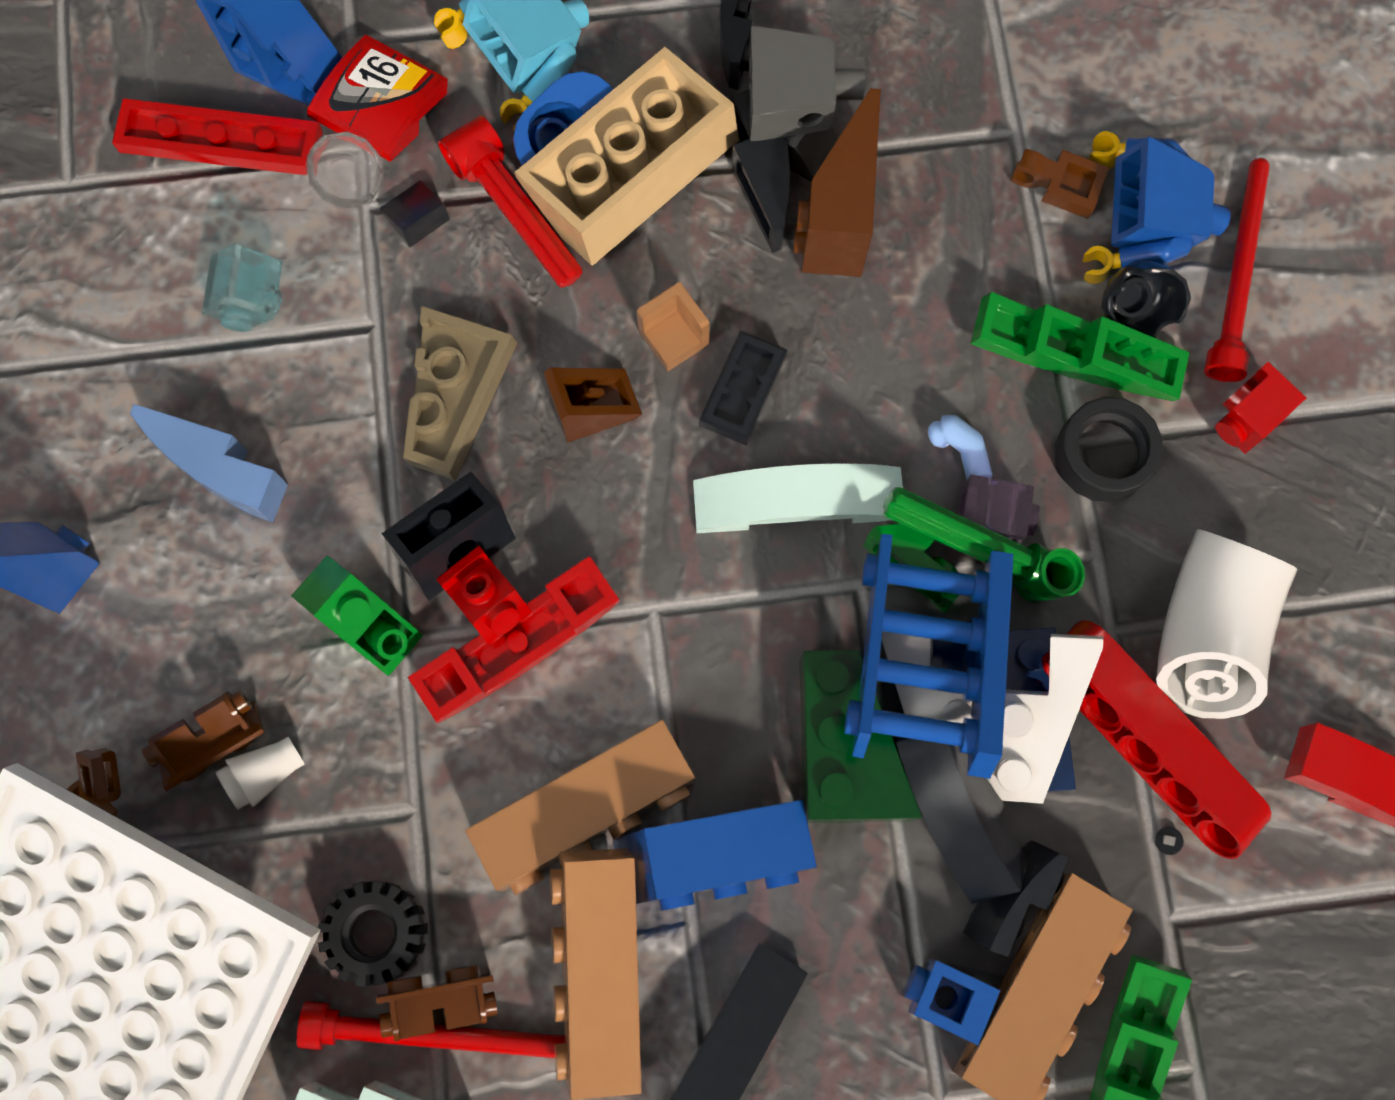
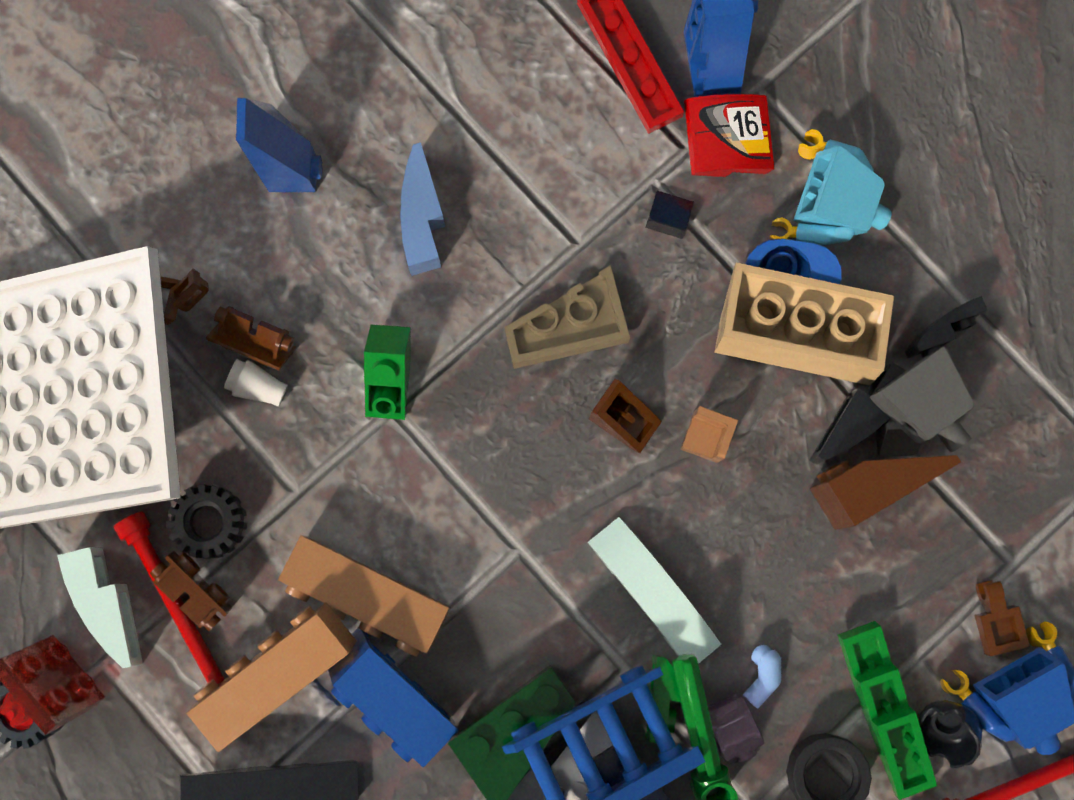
camera: 50 degrees right, 5 degrees up
(242, 288) = (540, 149): clear light blue brick -> none
(344, 170) = (663, 153): clear hair -> none
(447, 531) = (473, 393): black brick -> none
(477, 155) = (734, 225): red axle -> none
(479, 669) = (437, 480): red slope -> none
(484, 595) = (451, 441): red brick -> none
(743, 387) = (701, 506): black plate -> none

